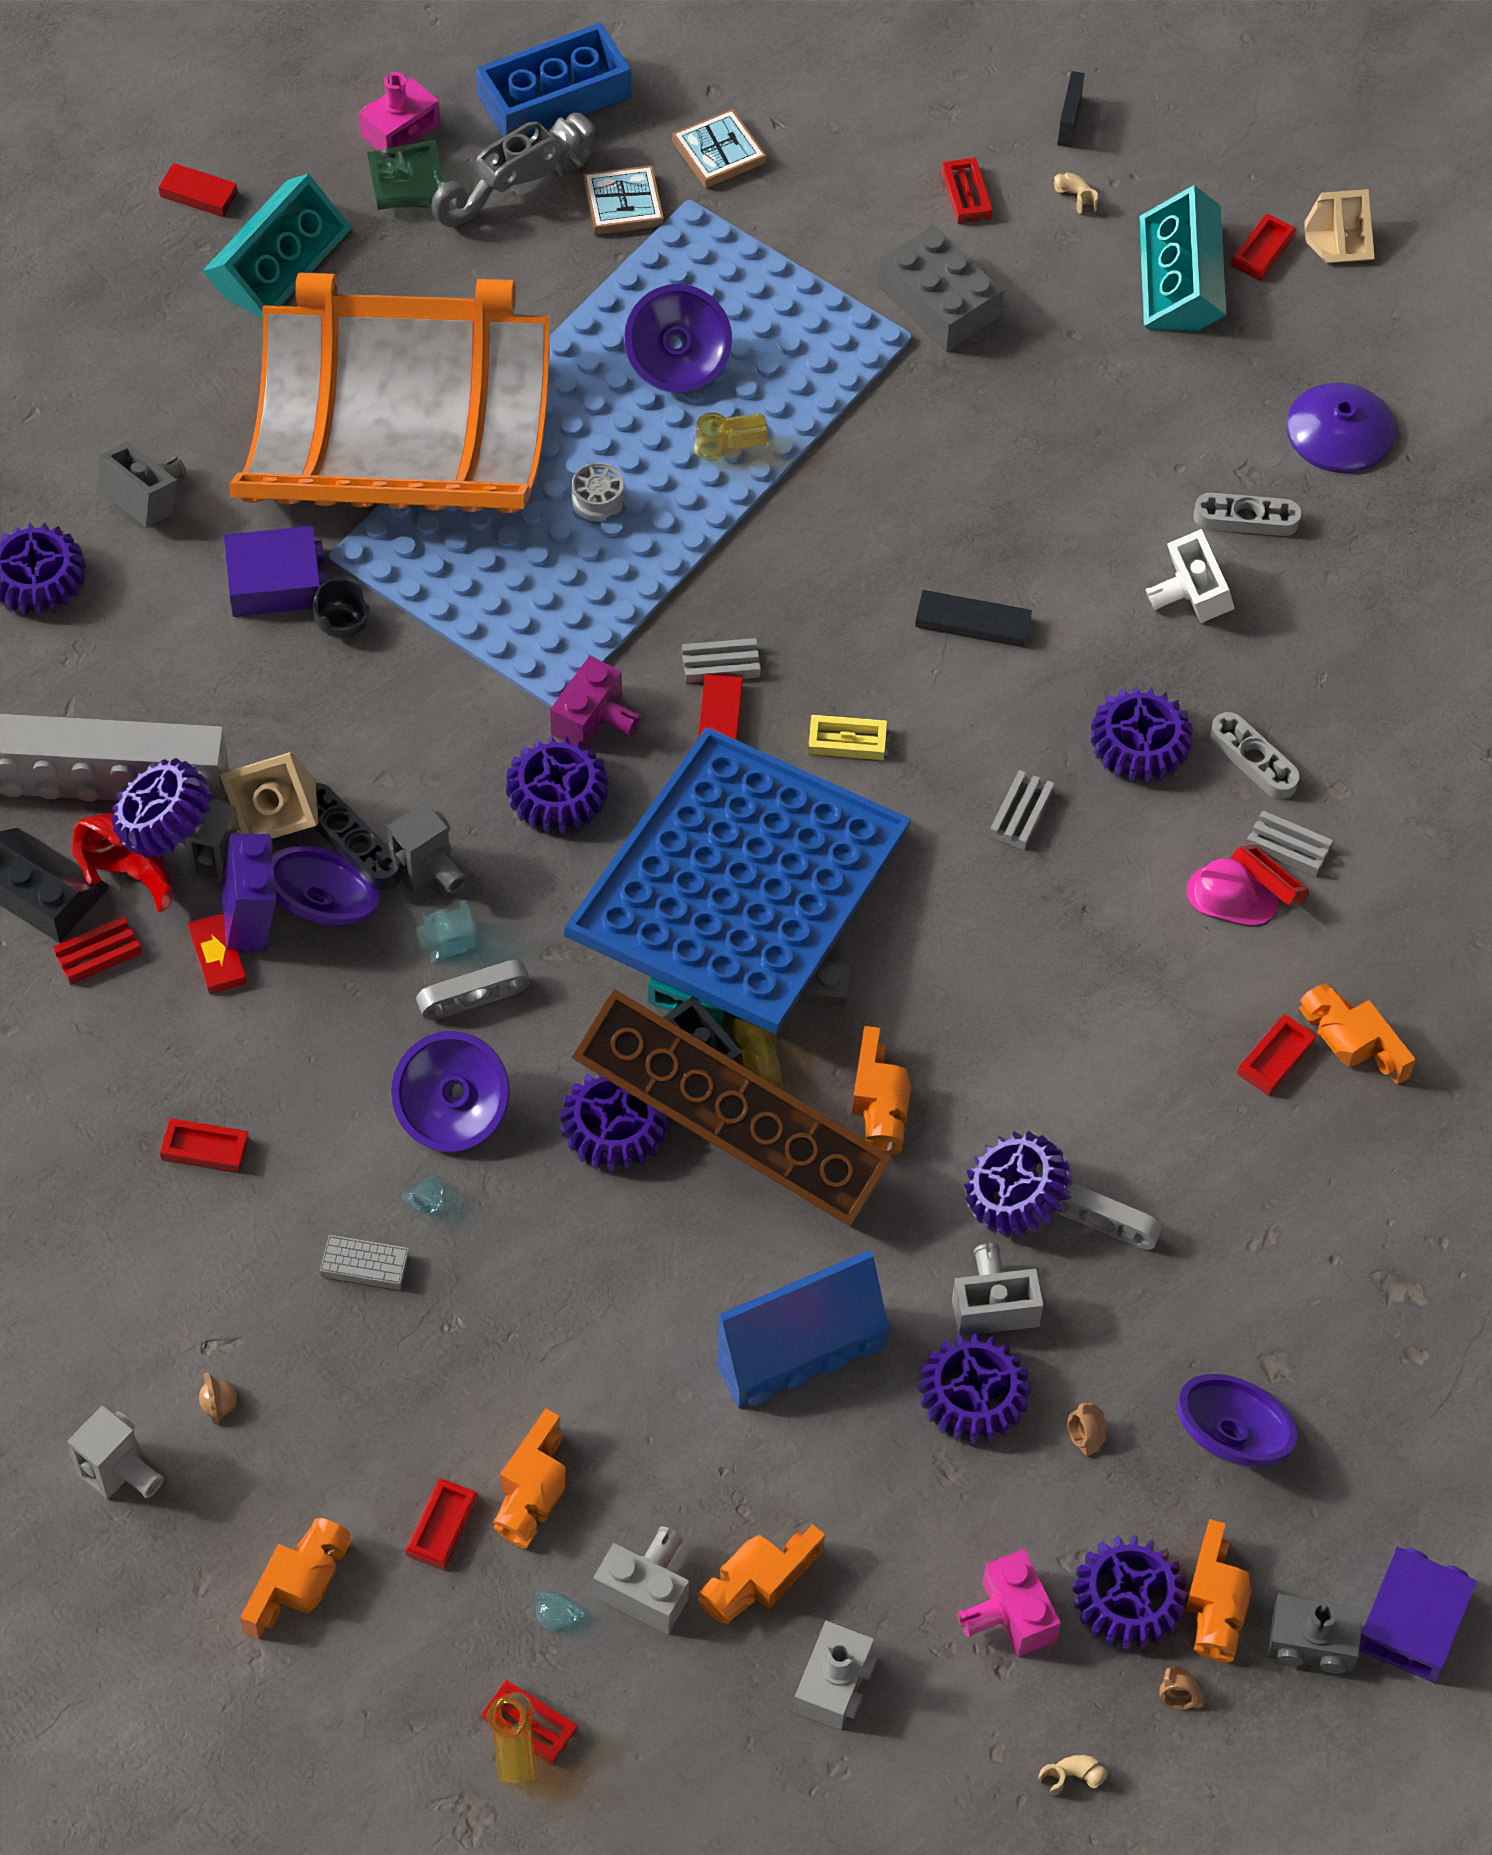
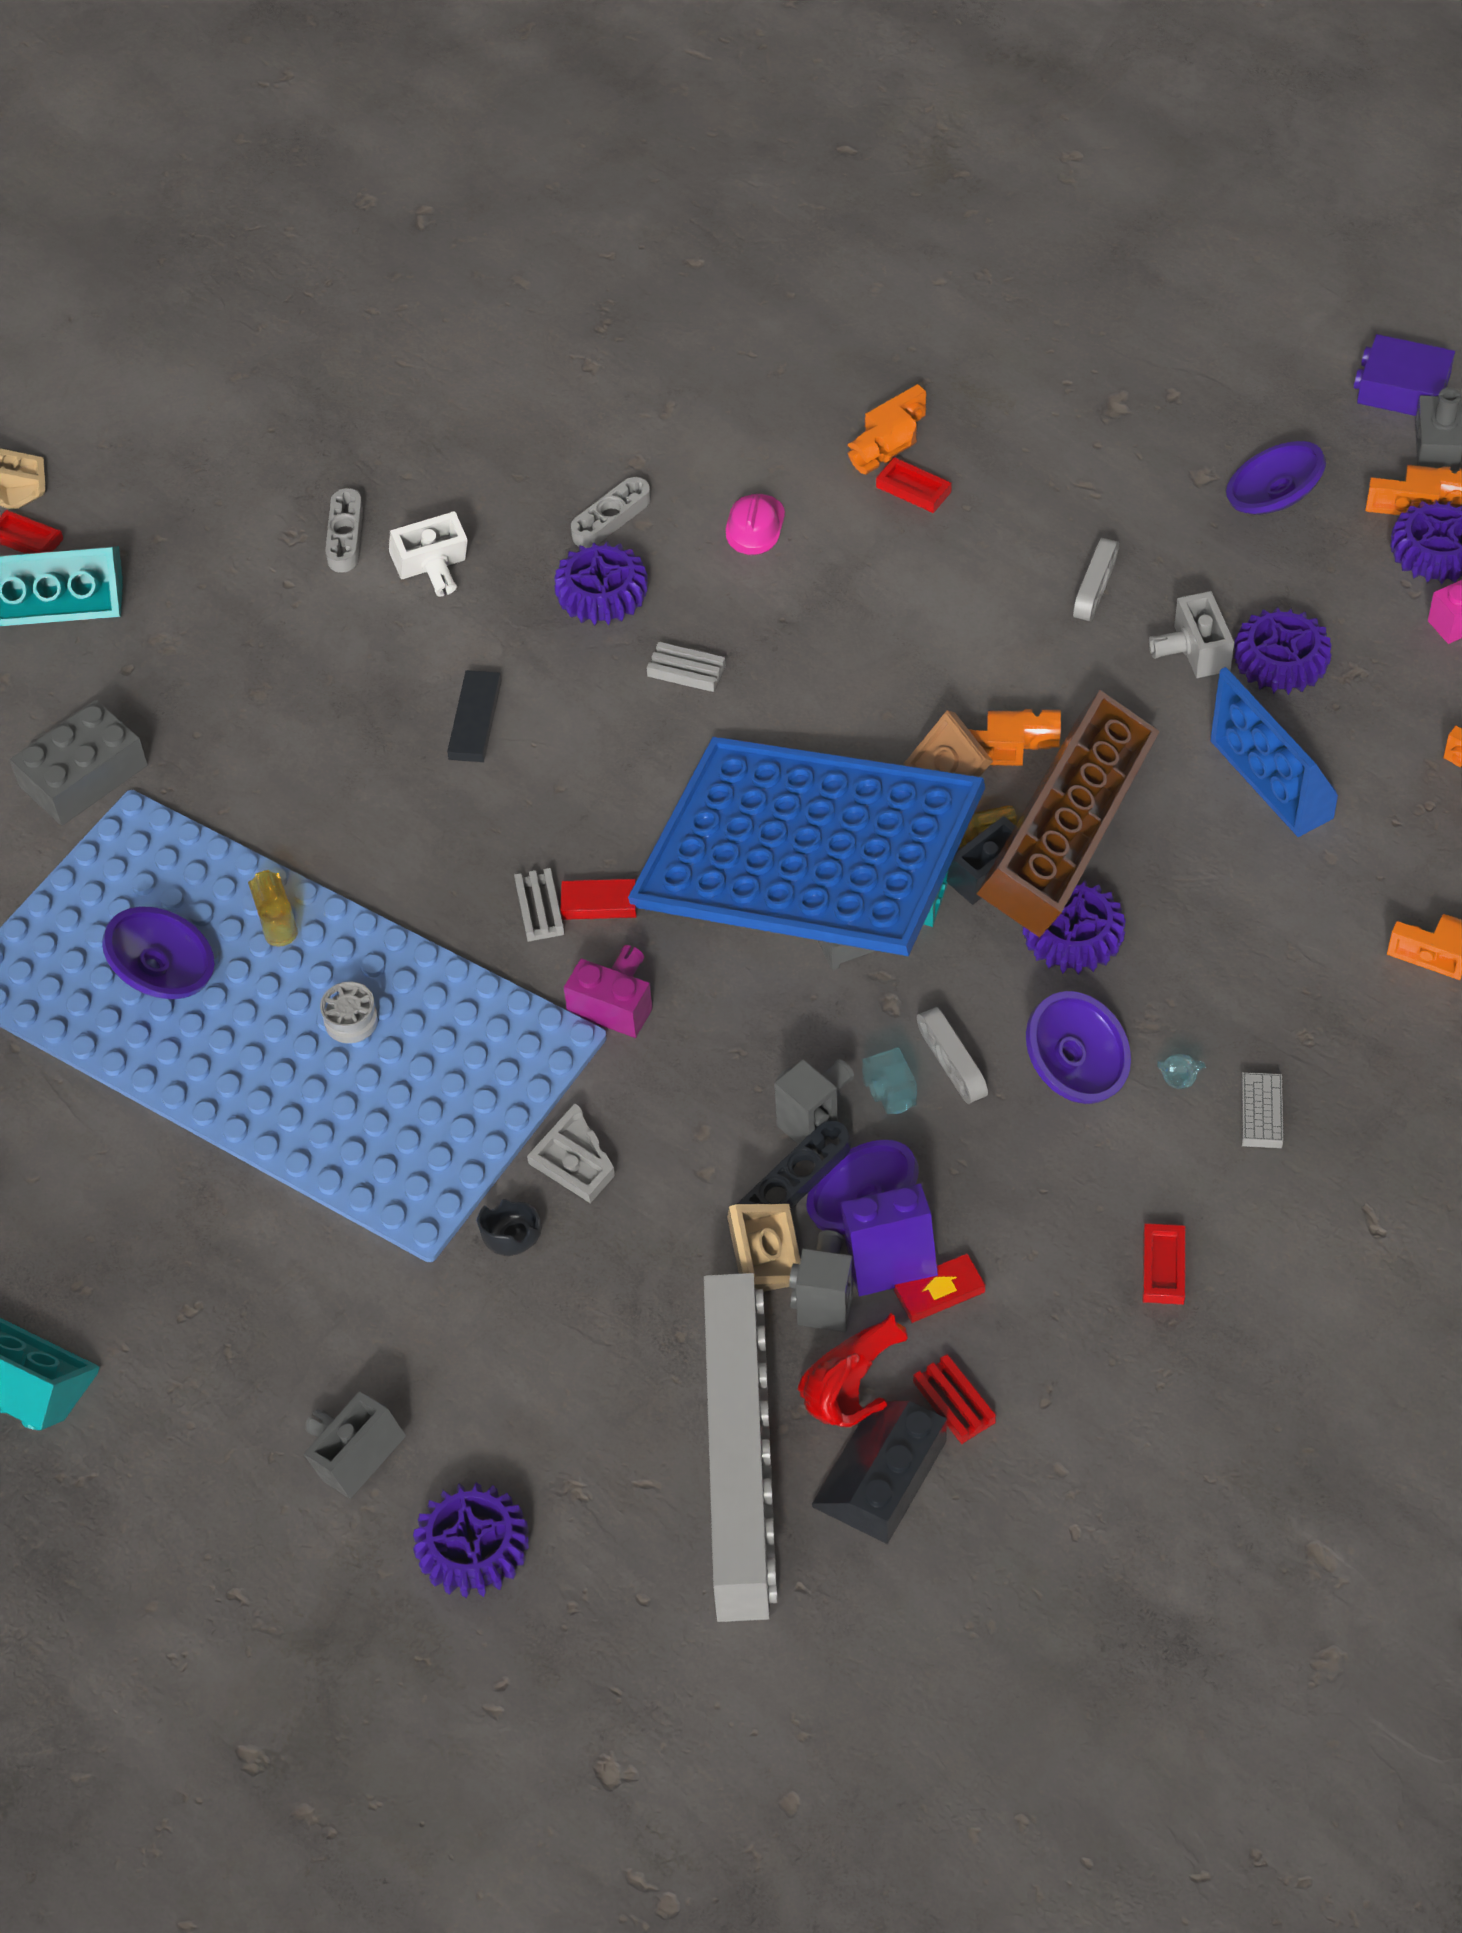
camera: 90 degrees left, 5 degrees down
(161, 808) = (805, 1347): dark purple gear -> none
(217, 1397) = (1433, 1211): medium nougat piece -> none
(273, 570) = (459, 1300): dark purple brick -> none
(399, 400) = (251, 1204): flat silver panel -> none
(414, 668) = (573, 1156): none -> light grey wing
(546, 801) = (701, 1024): dark purple gear -> none
(839, 1022) = (950, 749): none -> medium nougat tile
(847, 743) = (619, 821): light yellow tile -> none
(1023, 1195) = (1101, 630): dark purple gear -> none
(1091, 1426) = (1297, 582): medium nougat piece -> none
(1271, 874) = (738, 490): red tile -> none
(1291, 838) = (707, 468): light grey tile -> none
(1337, 439) = (239, 475): dark purple dish -> none

